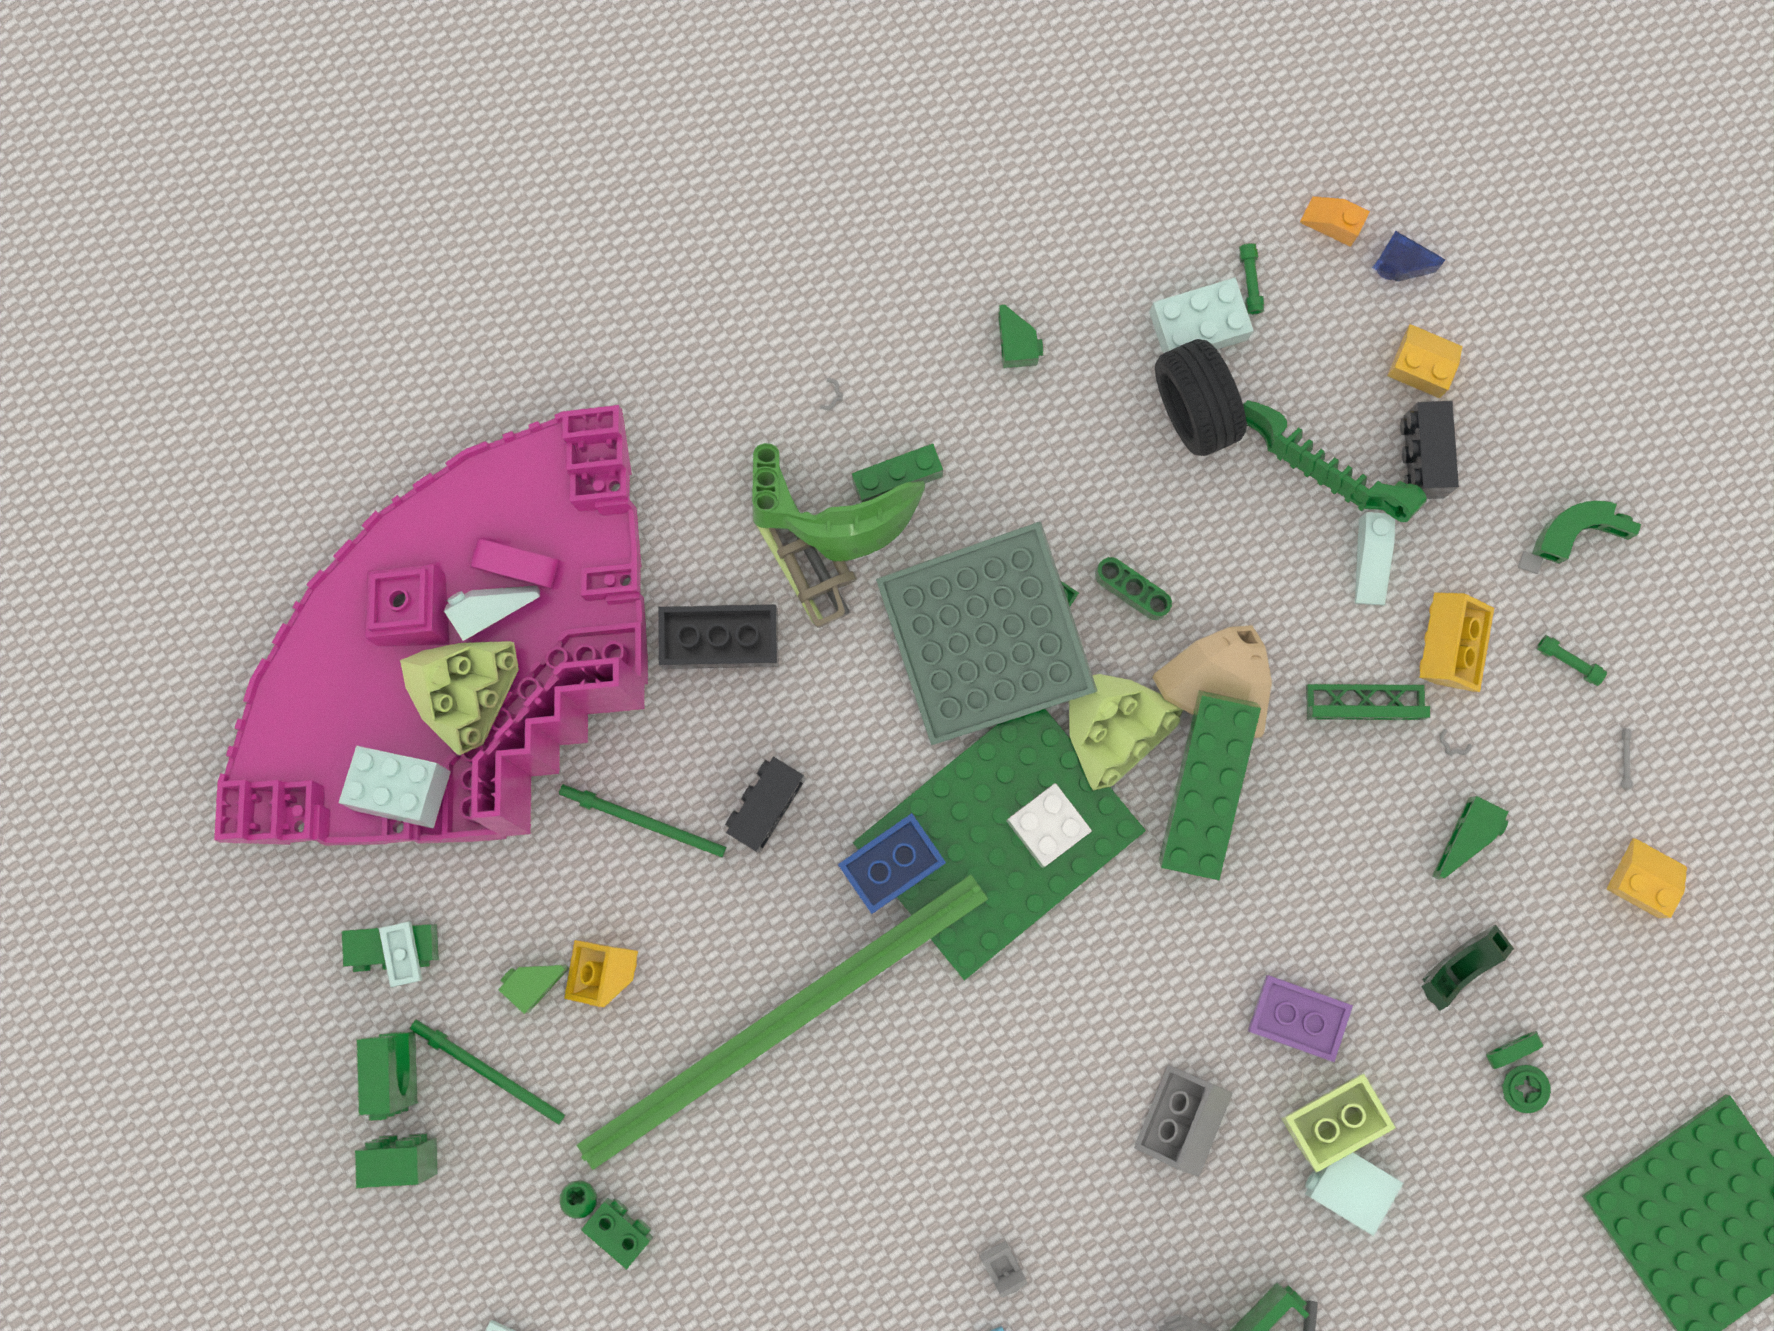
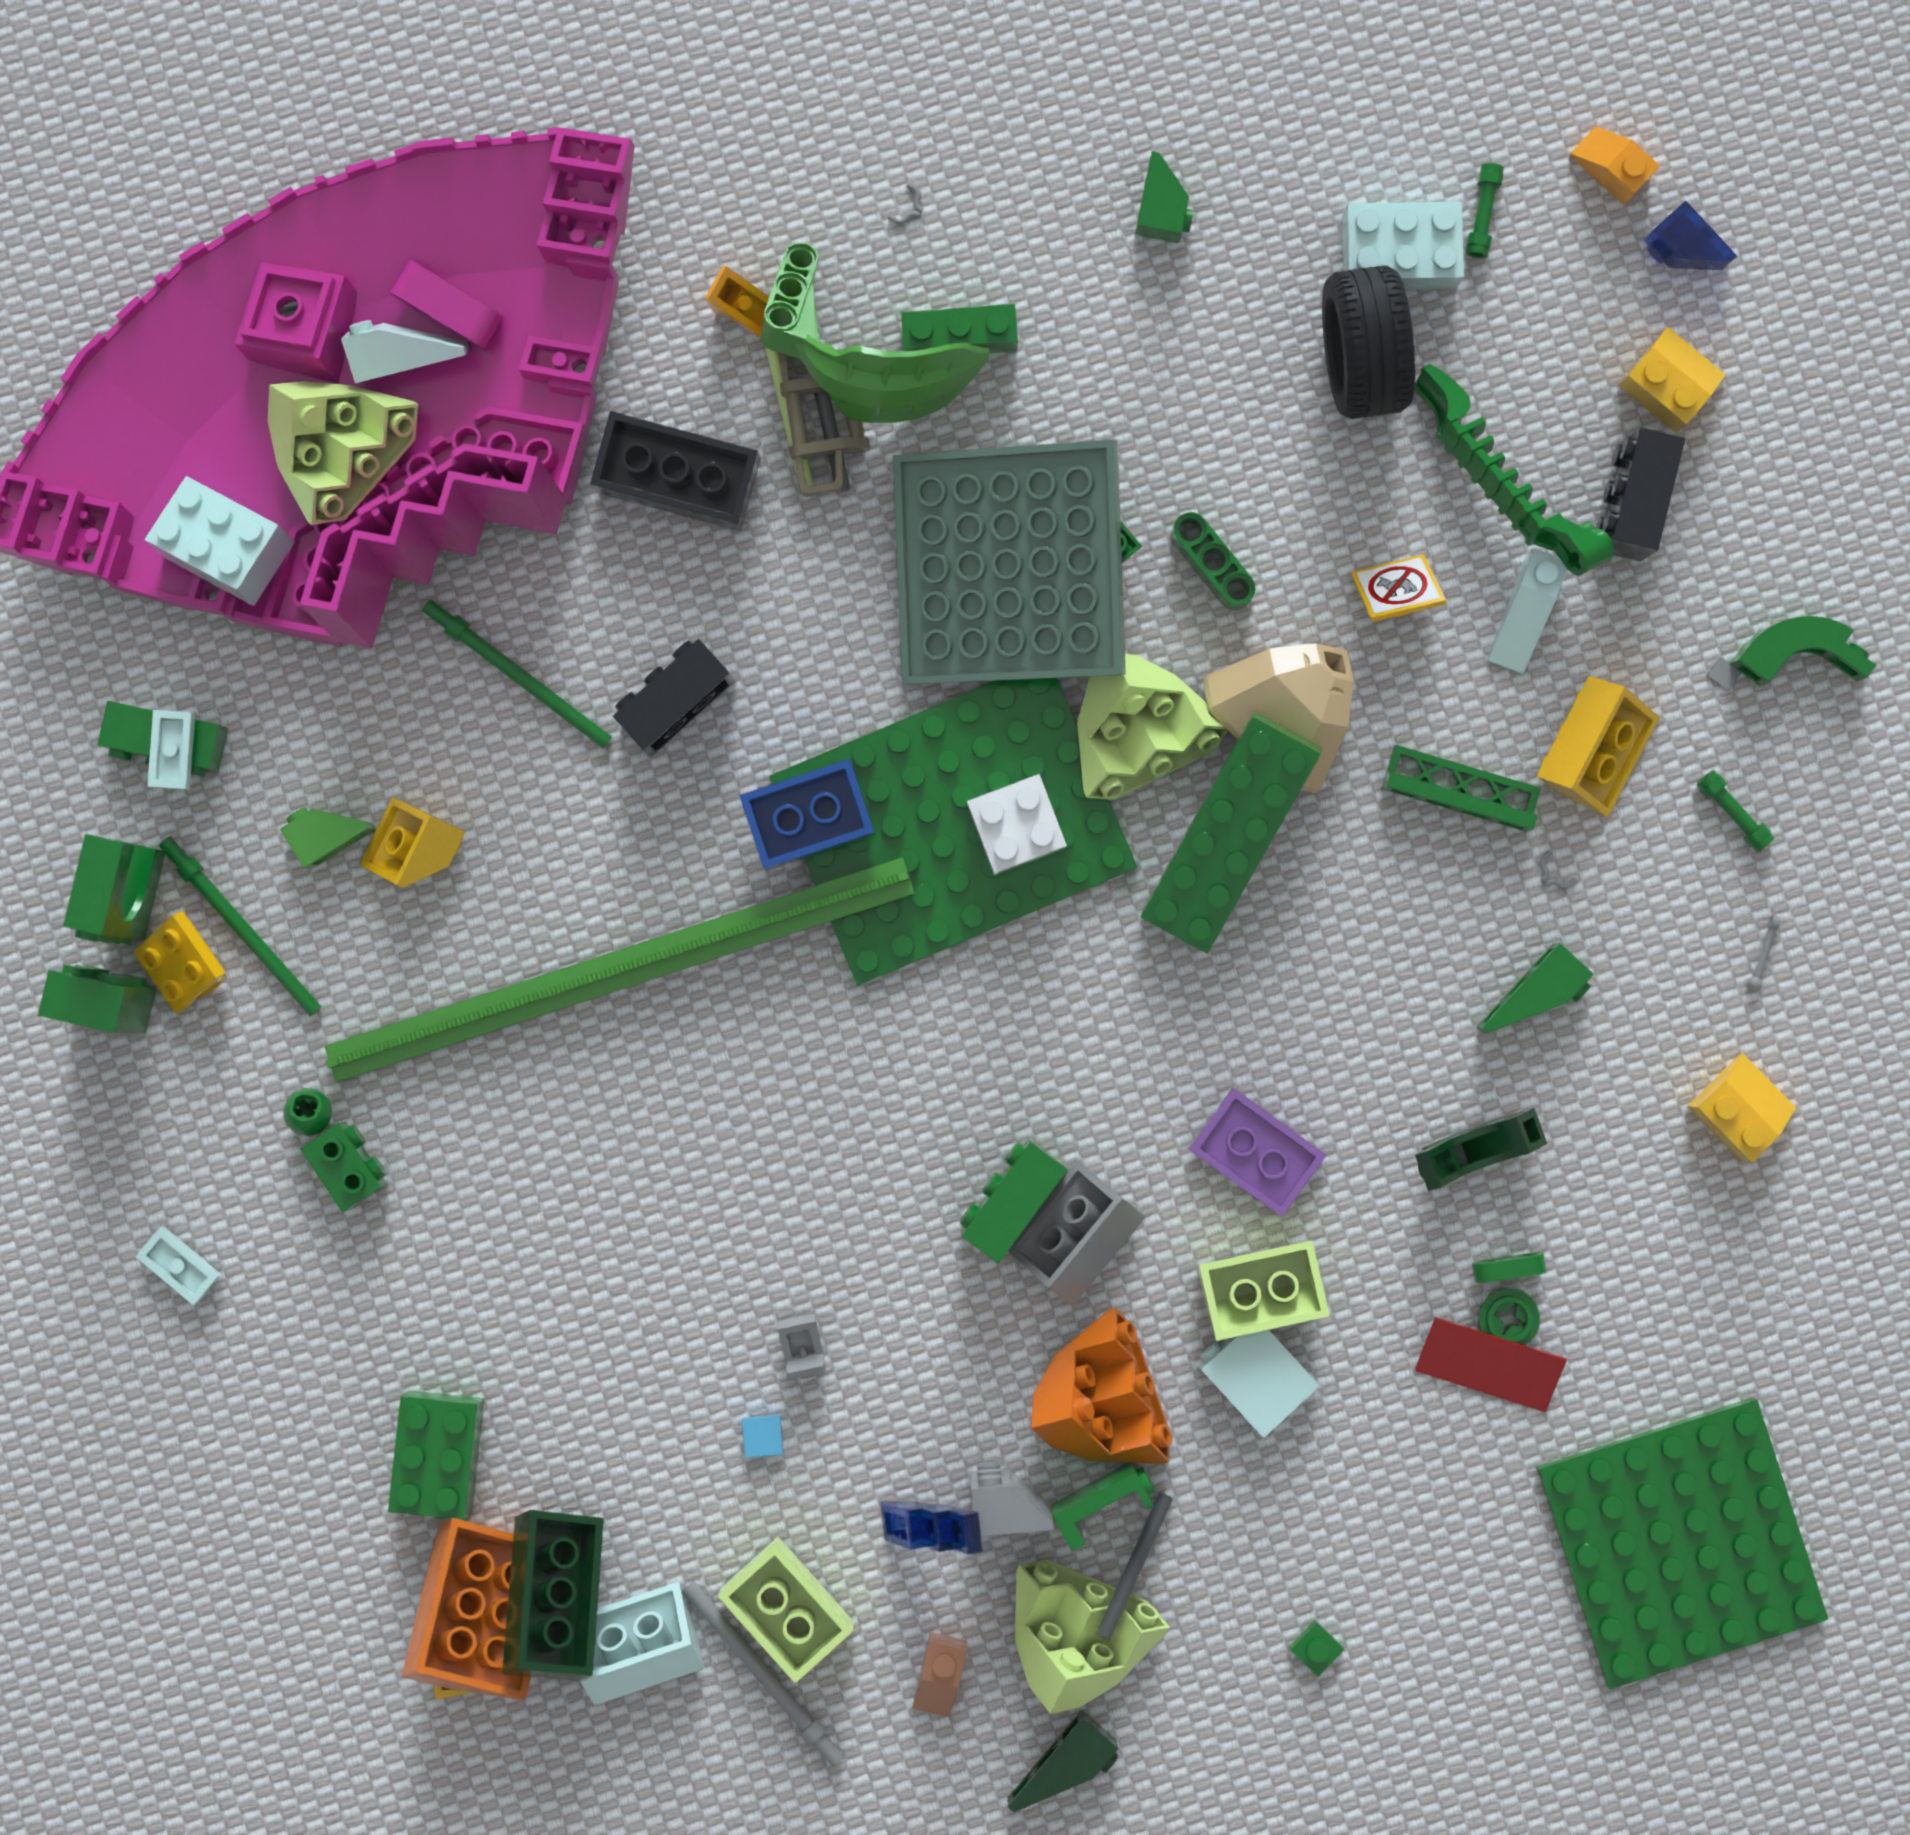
camera: 15 degrees right, 5 degrees up
(449, 1113) = (180, 962): none -> yellow plate
(729, 499) = (738, 300): none -> light orange slope
(1129, 1109) = (1011, 1199): none -> green brick
(1241, 1242) = (1102, 1398): none -> orange brick
(1275, 569) = (1398, 588): none -> piece
(1523, 1128) = (1490, 1364): none -> red piece

